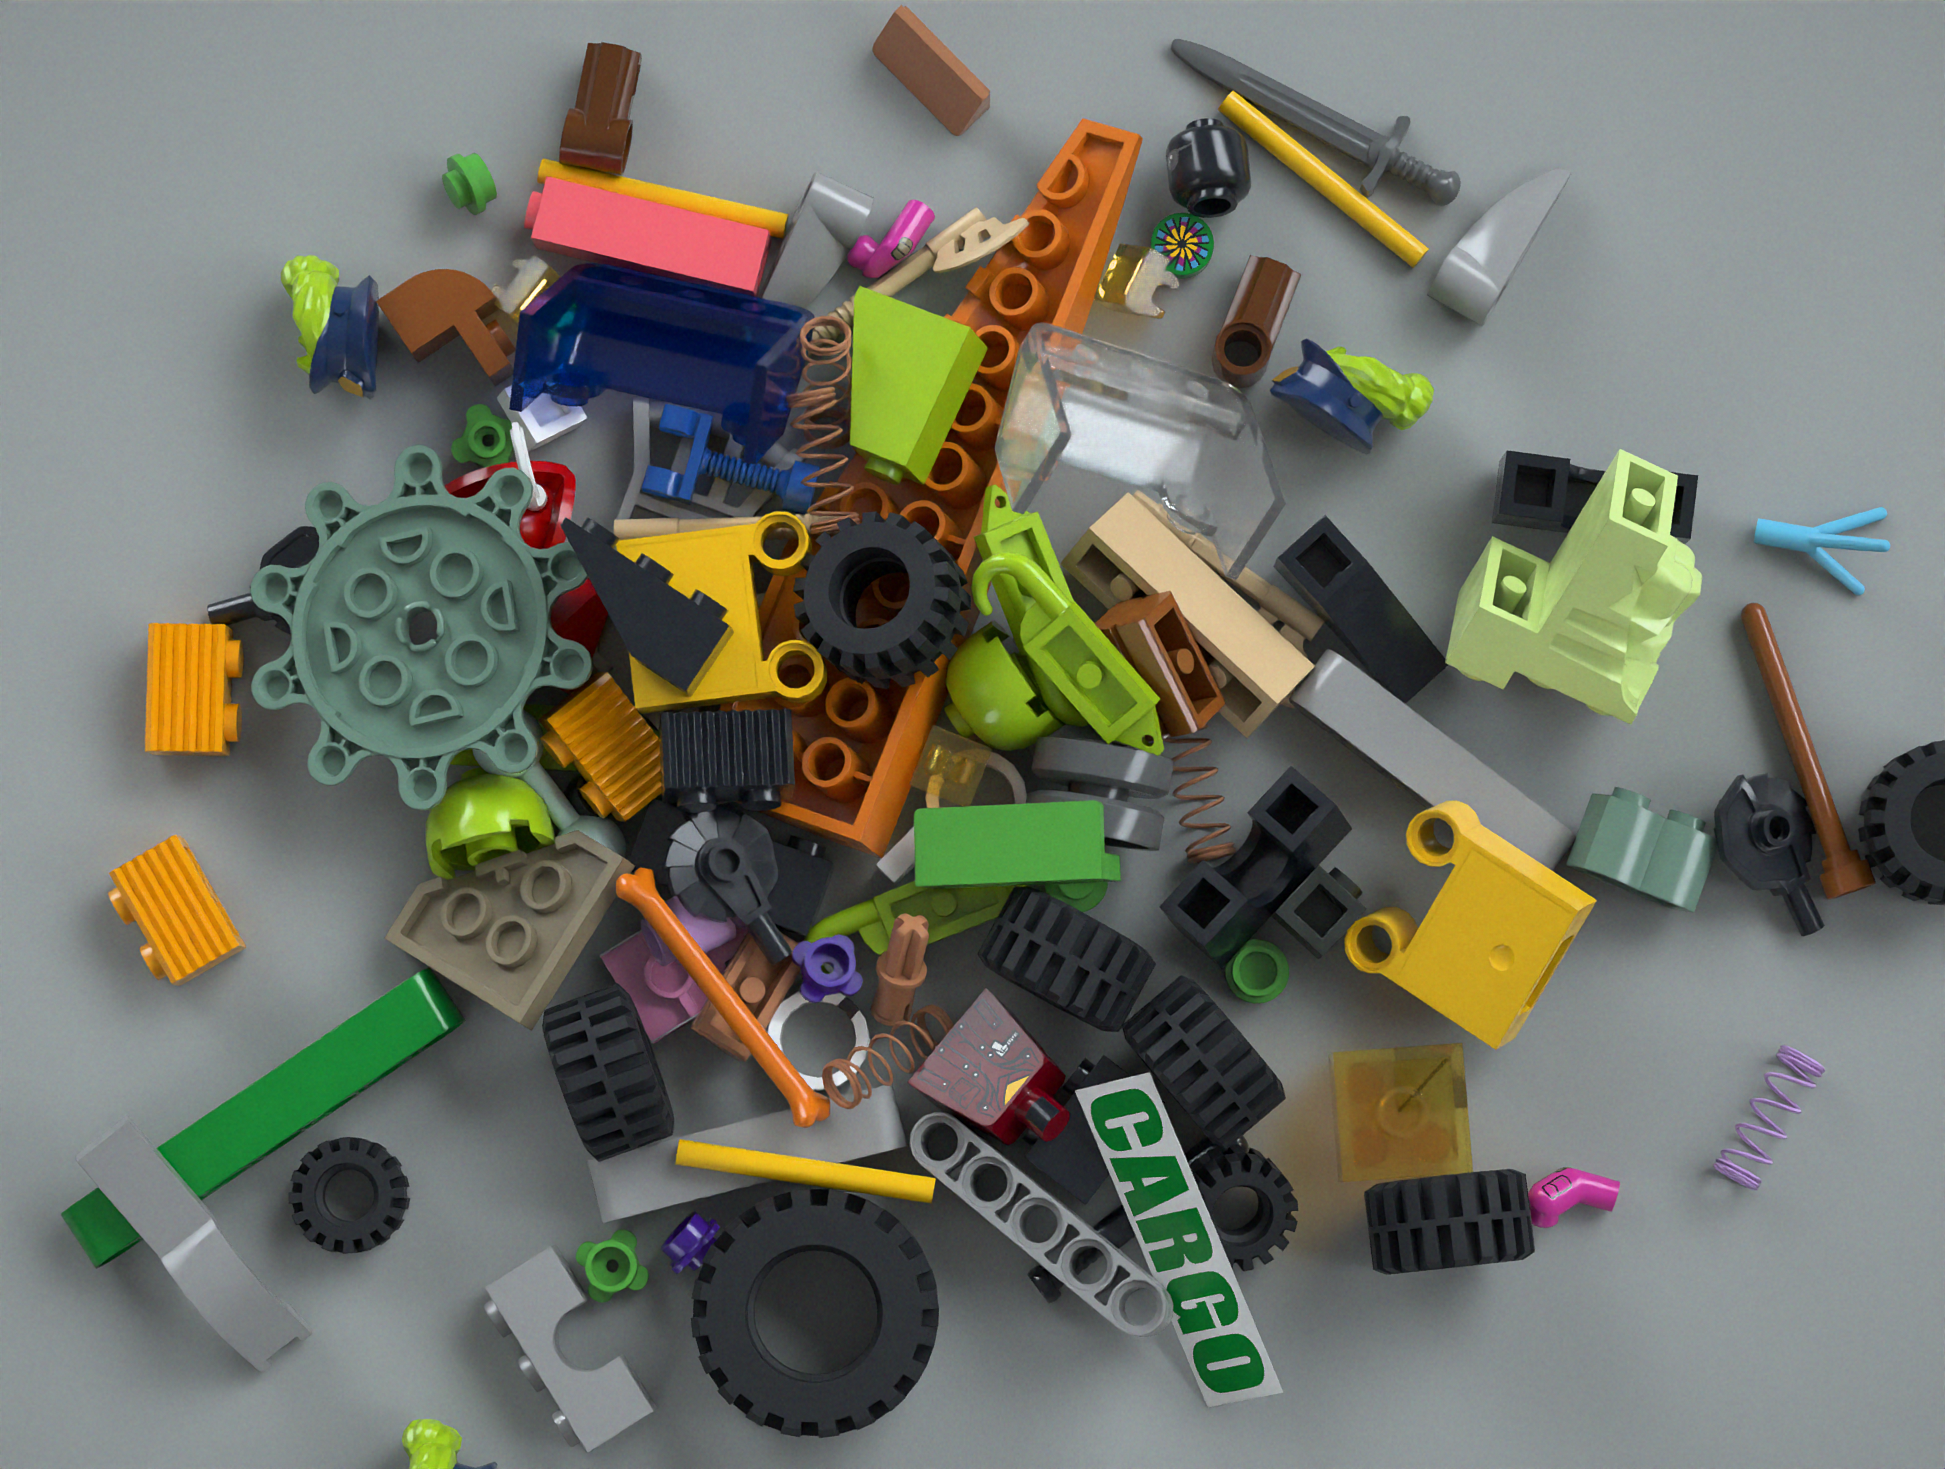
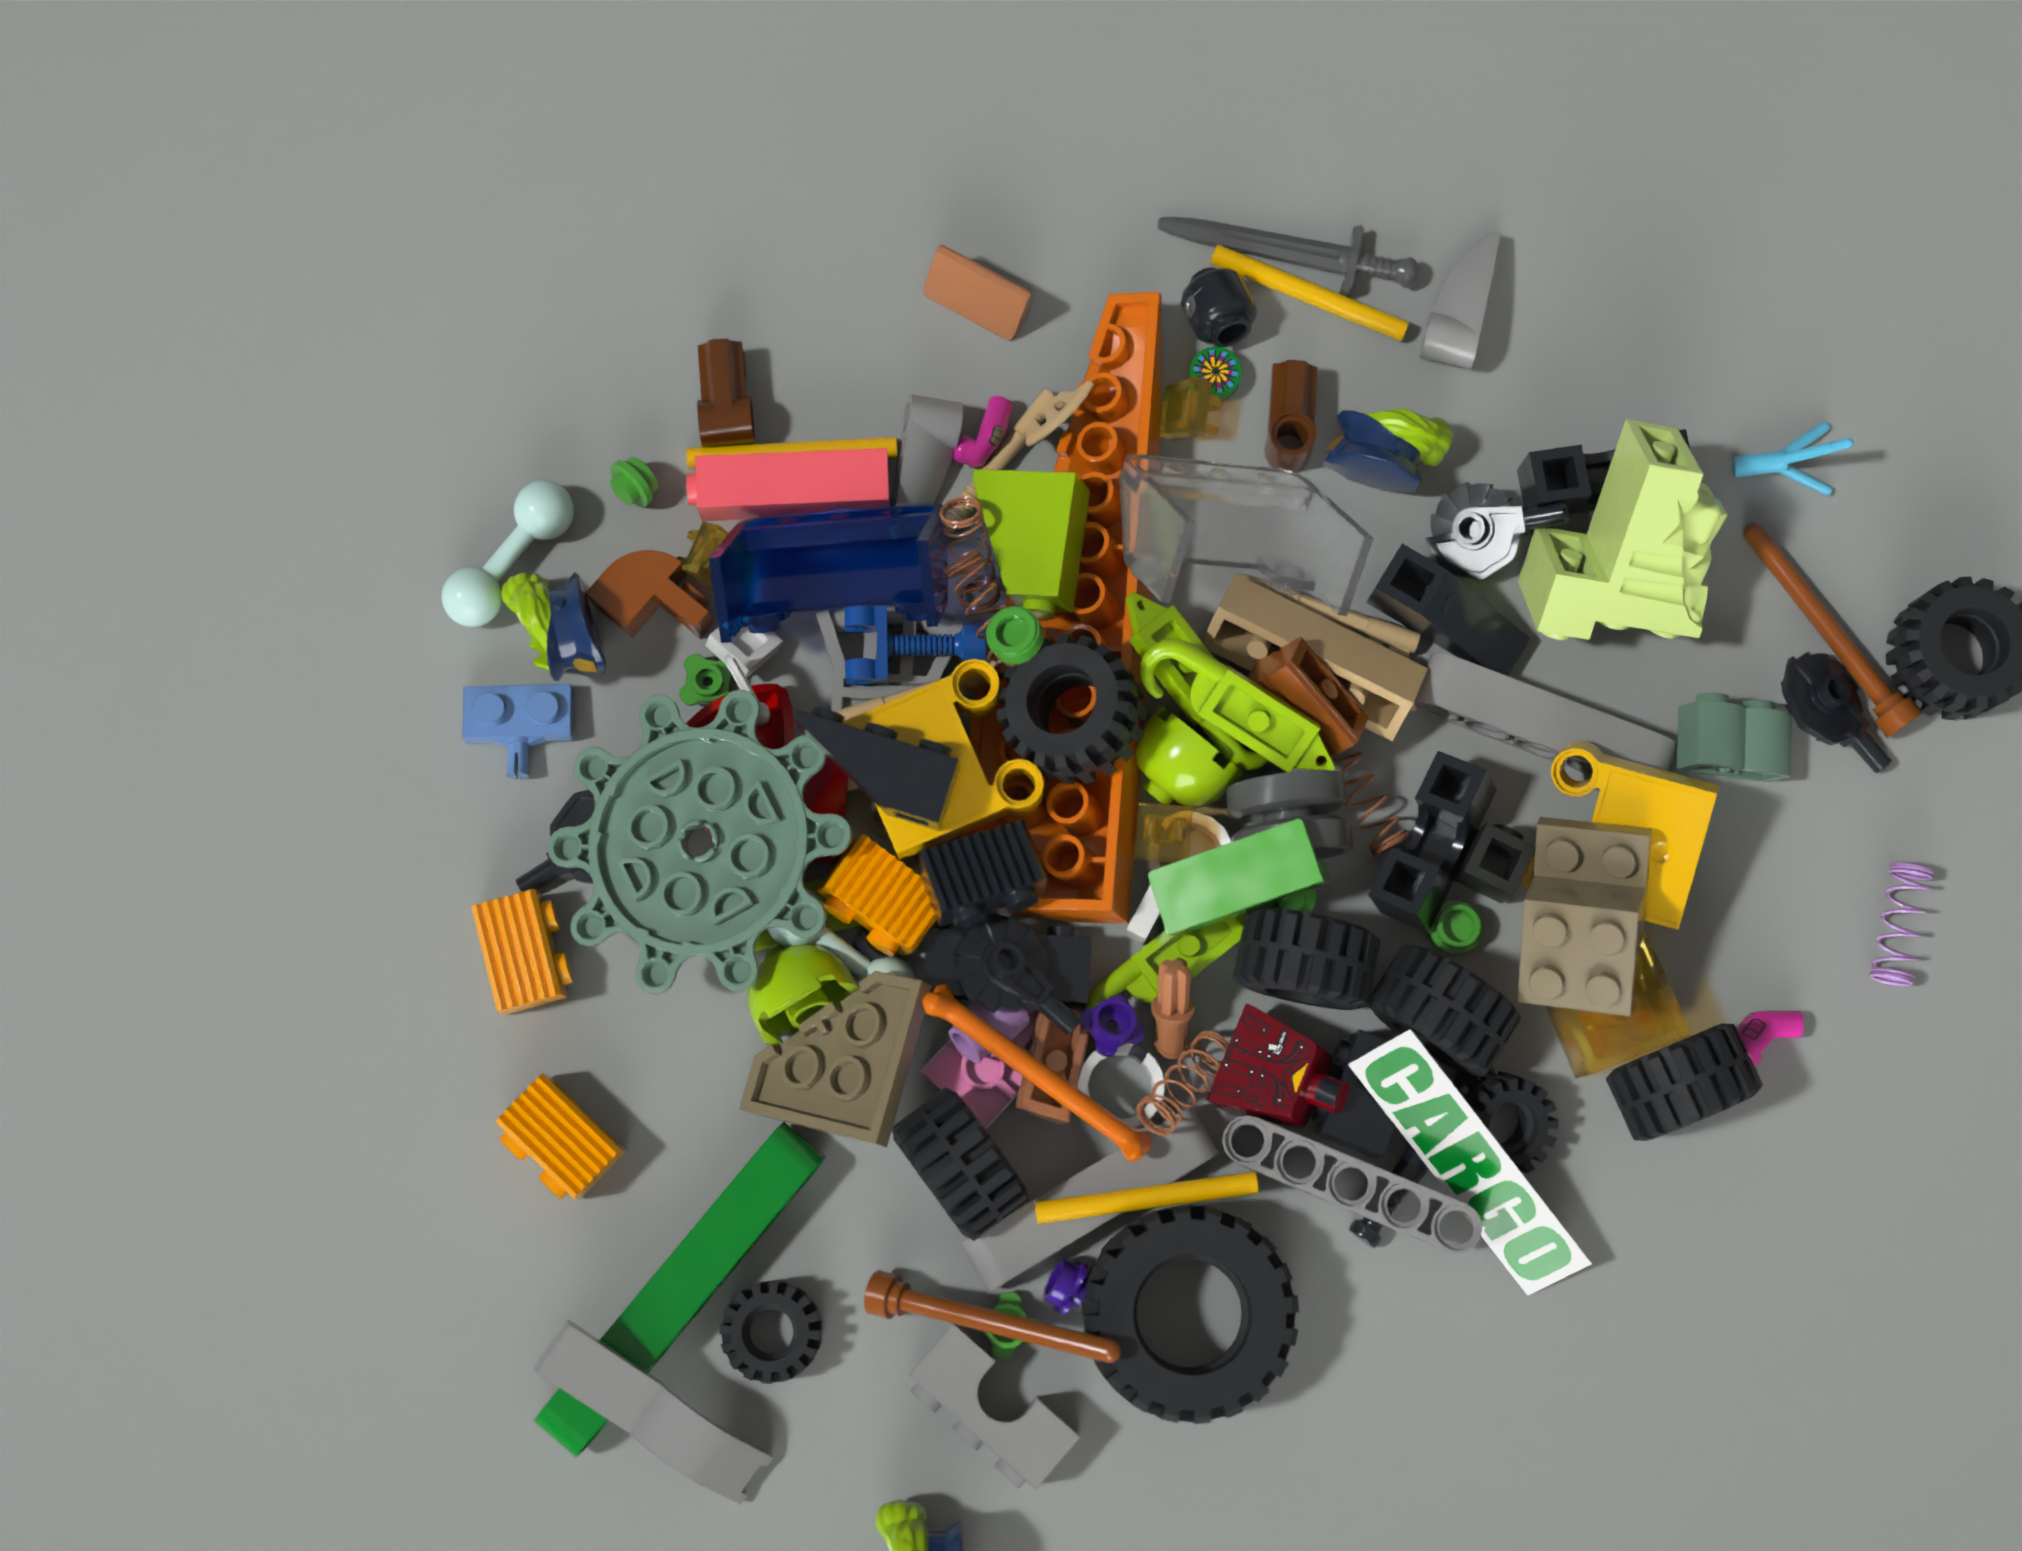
camera: 25 degrees left, 5 degrees down
(251, 262) = (474, 593): none -> light aqua piece
(261, 421) = (518, 719): none -> medium blue plate
(490, 1195) = (890, 1296): none -> dark orange piece
(840, 498) = (1014, 635): none -> bright green tile
(1390, 1003) = (1584, 916): none -> dark tan bracket
(1430, 522) = (1482, 531): none -> piece

